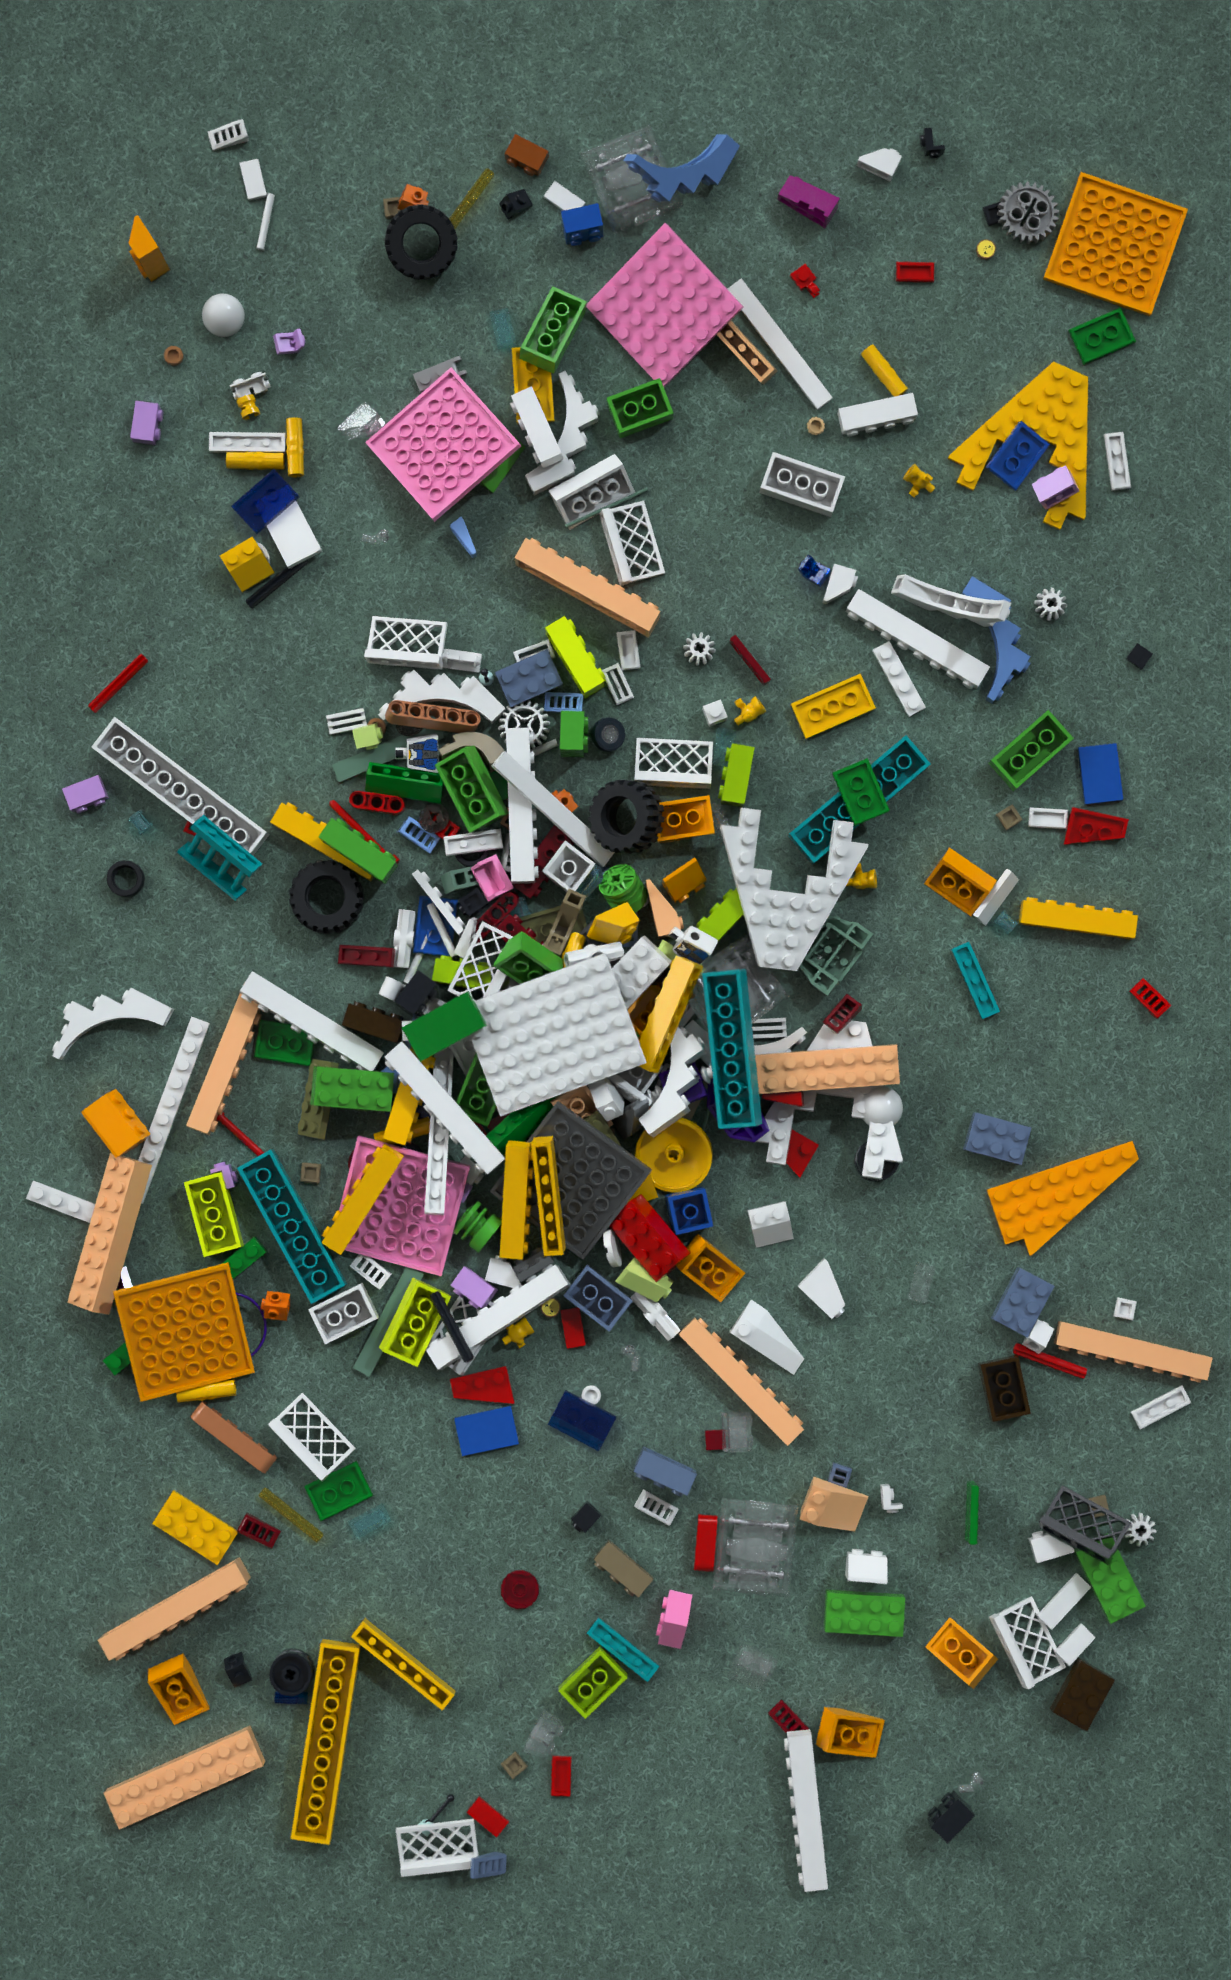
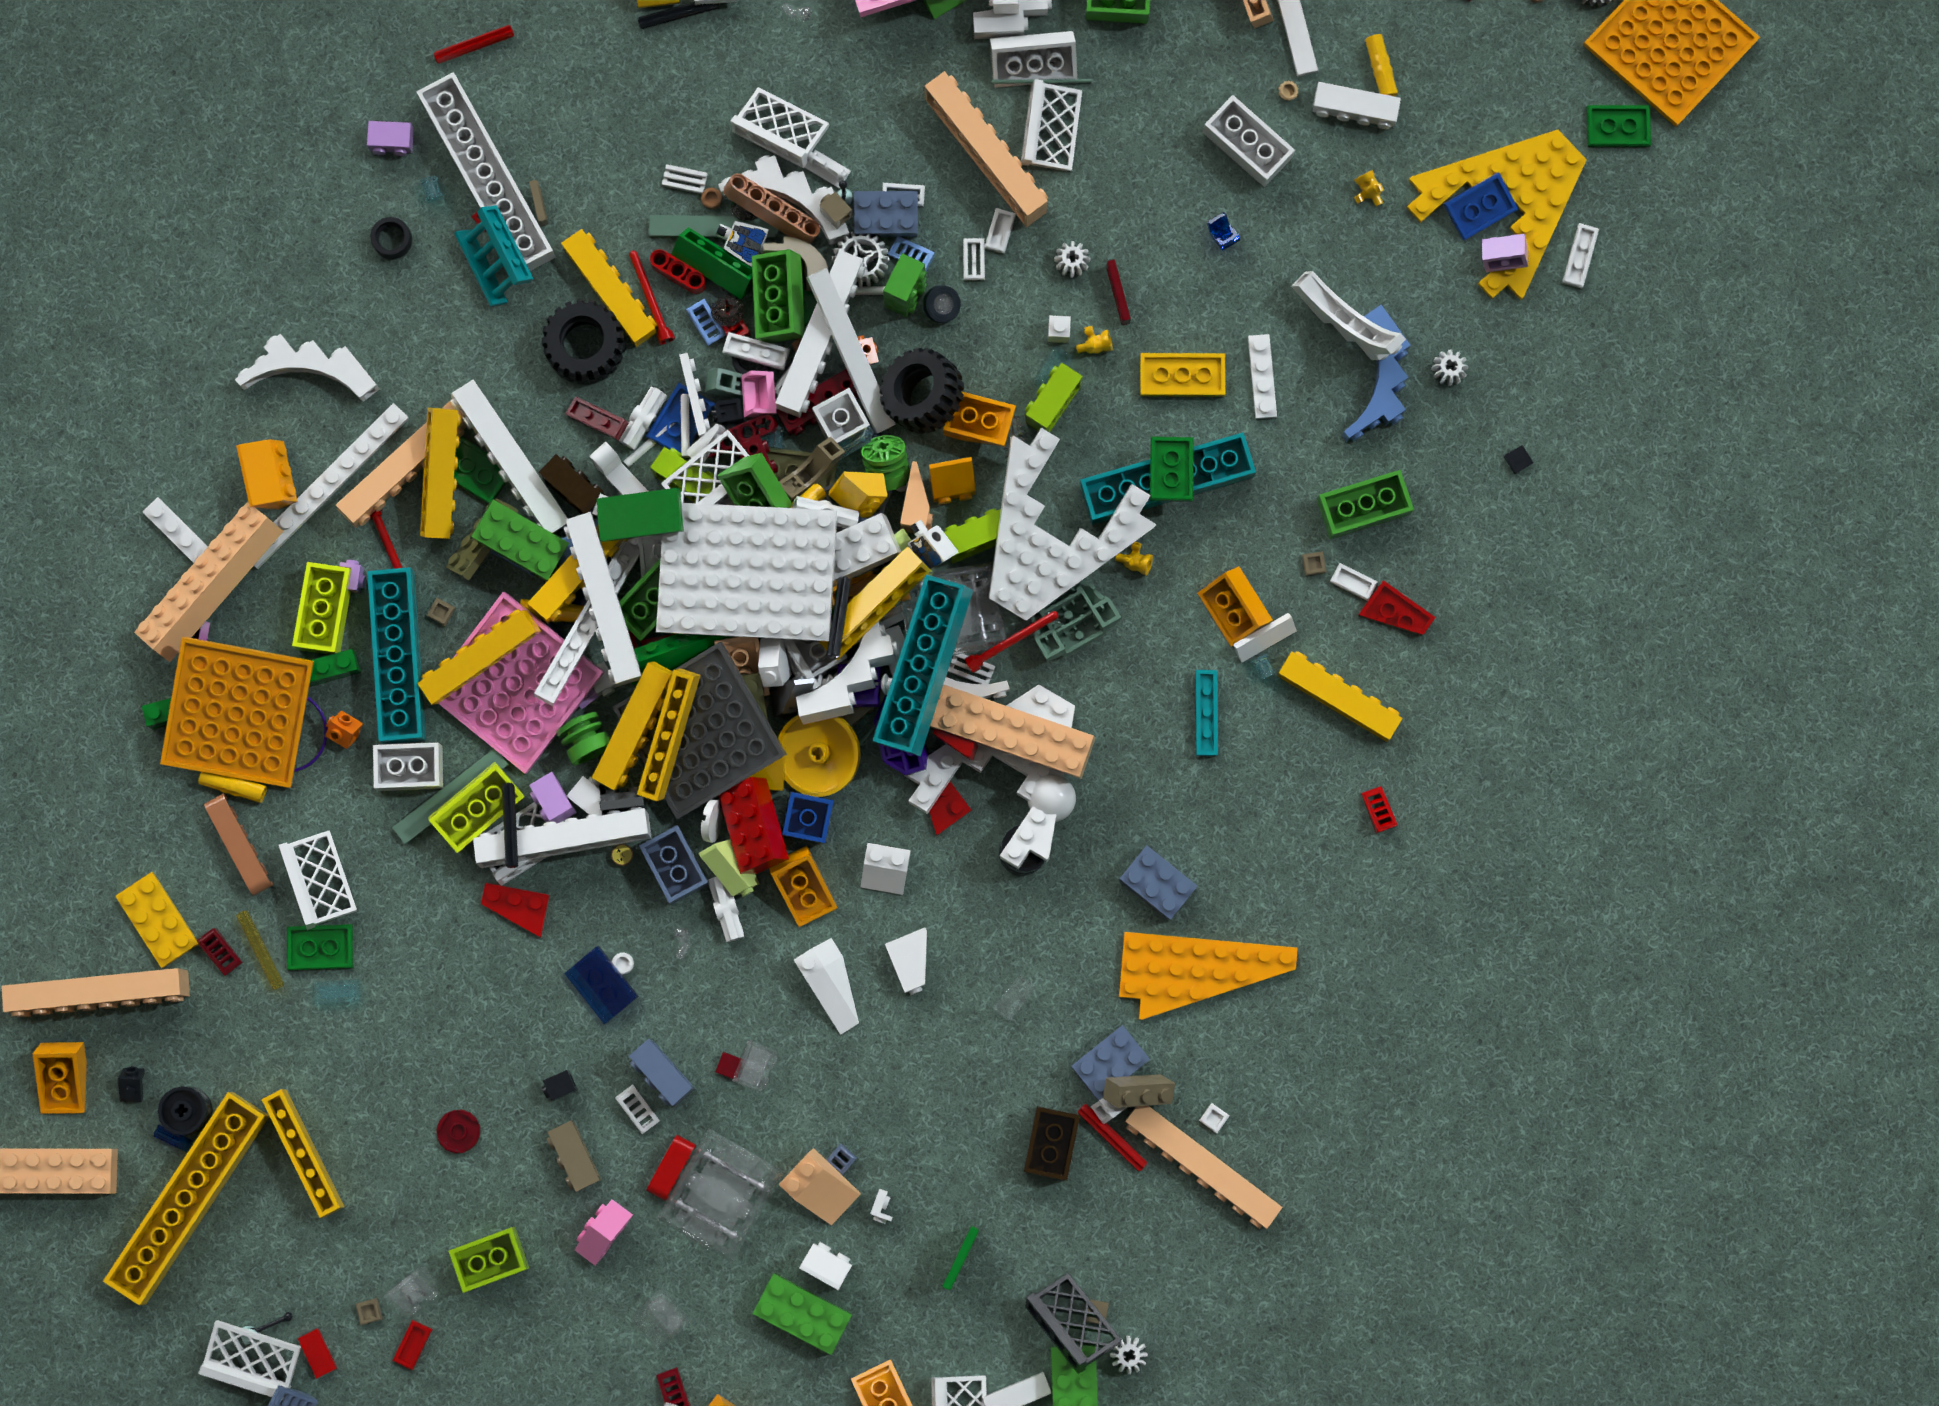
camera: 20 degrees right, 5 degrees down
(235, 795) = (539, 203): none -> dark tan tile
(258, 1060) = (439, 473): none -> yellow brick
(357, 850) = (635, 307): bright green brick -> none
(368, 736) = (698, 201): yellowish green brick -> none
(382, 1281) = (464, 751): white slope -> none
(417, 994) = (628, 474): black brick -> none
(460, 530) = (884, 40): light blue slope -> none
(486, 694) = (835, 209): none -> dark tan brick
(486, 1430) = (499, 952): blue tile -> none
(518, 1332) = (576, 865): yellow piece -> none
(573, 1327) = (635, 886): red tile -> none
(574, 656) = (941, 207): neon yellow brick -> none
(622, 1649) = (536, 1240): teal plate -> none
(645, 1039) = (838, 617): none -> black axle
(676, 779) = (991, 378): white fence -> none
(744, 1384) = (783, 1017): light nougat brick -> none
(770, 1021) = (976, 661): none -> red piece
(840, 582) = (1243, 255): white slope -> none
(846, 1000) = (1064, 675): dark red slope -> none
(917, 639) = (1298, 344): white brick -> none
(1047, 1547) = (1024, 1330): white slope -> none
(1057, 1315) = (1138, 1090): none -> dark tan brick
(1100, 773) = (1427, 560): blue tile -> none
(1161, 1407) = (1207, 1237): white tile -> none

